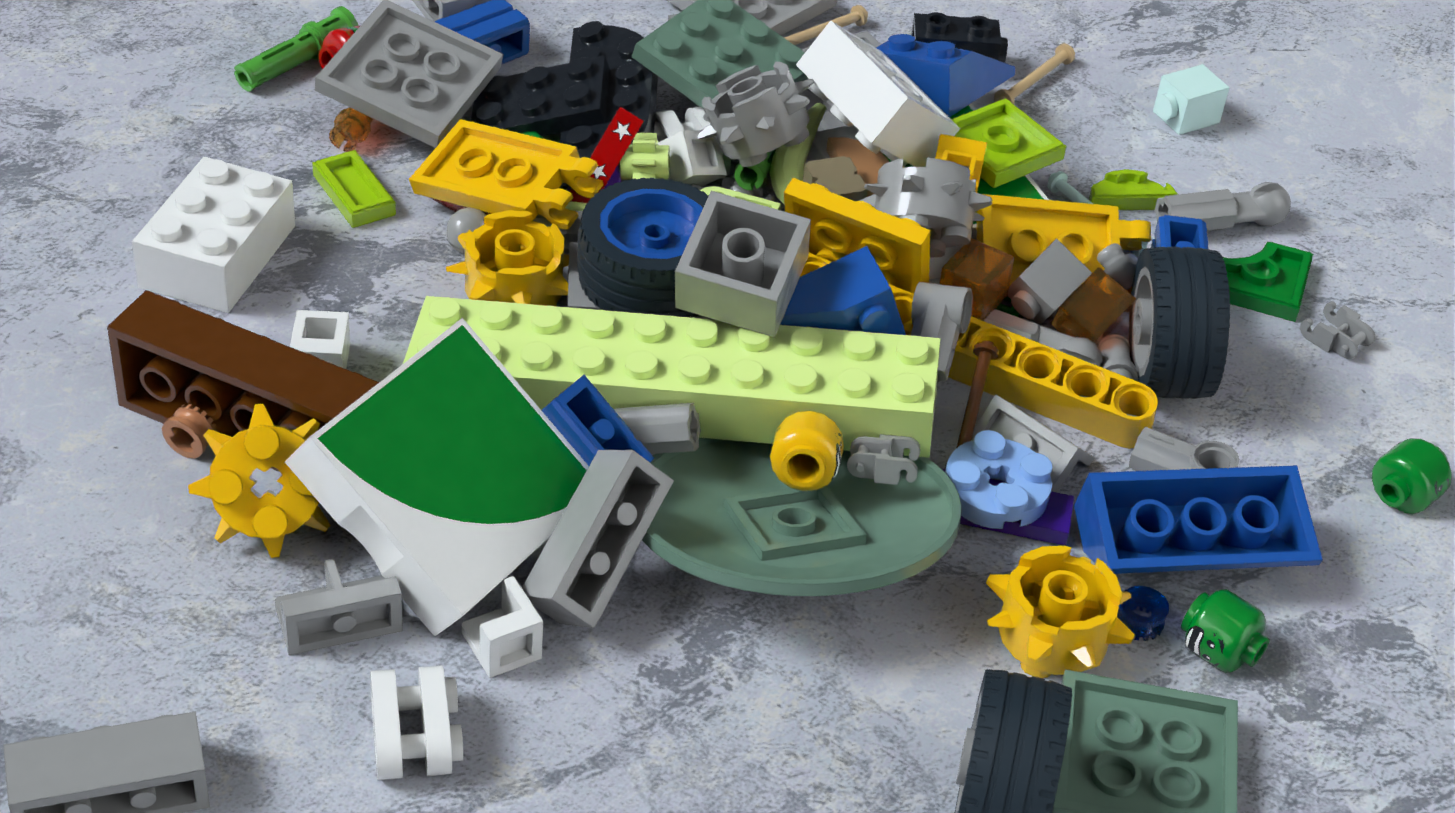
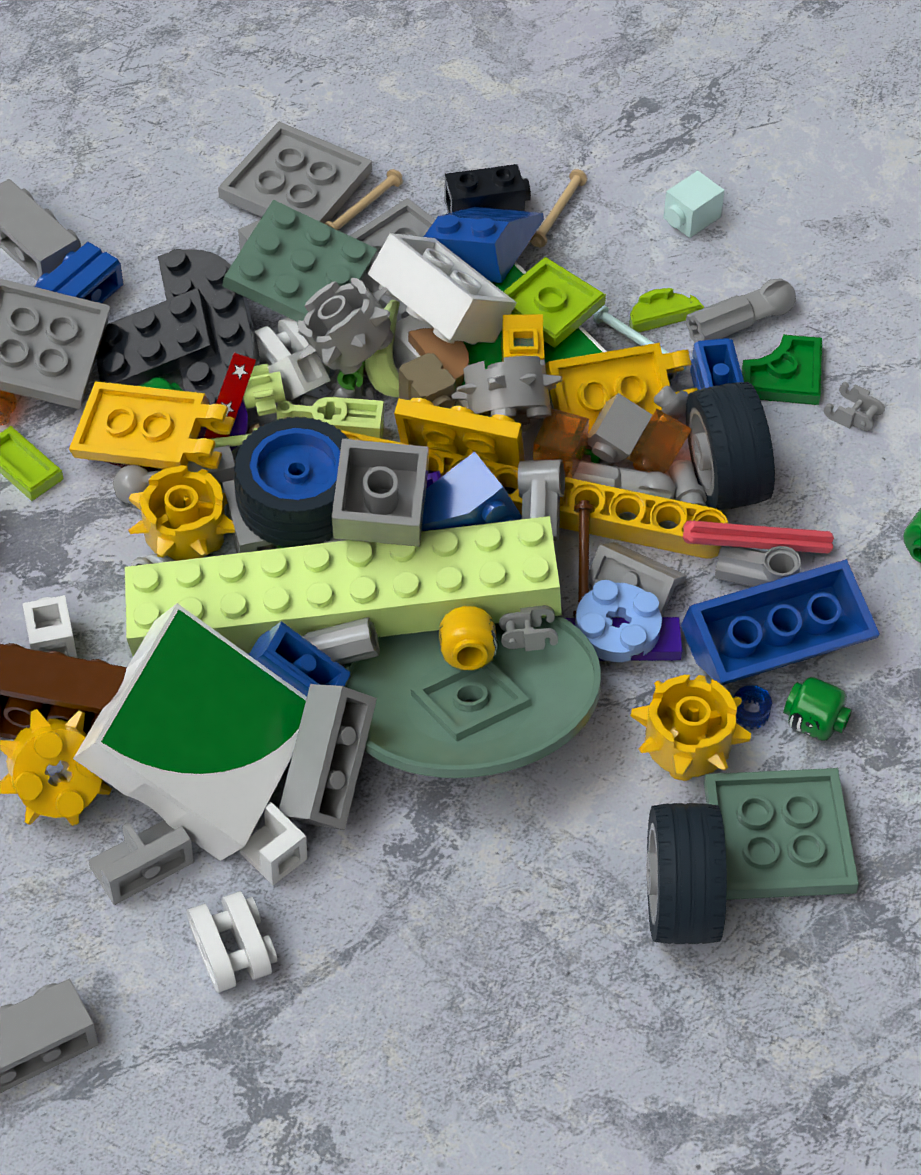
camera: 10 degrees left, 10 degrees up
(1187, 425) = (757, 536): none -> coral axle

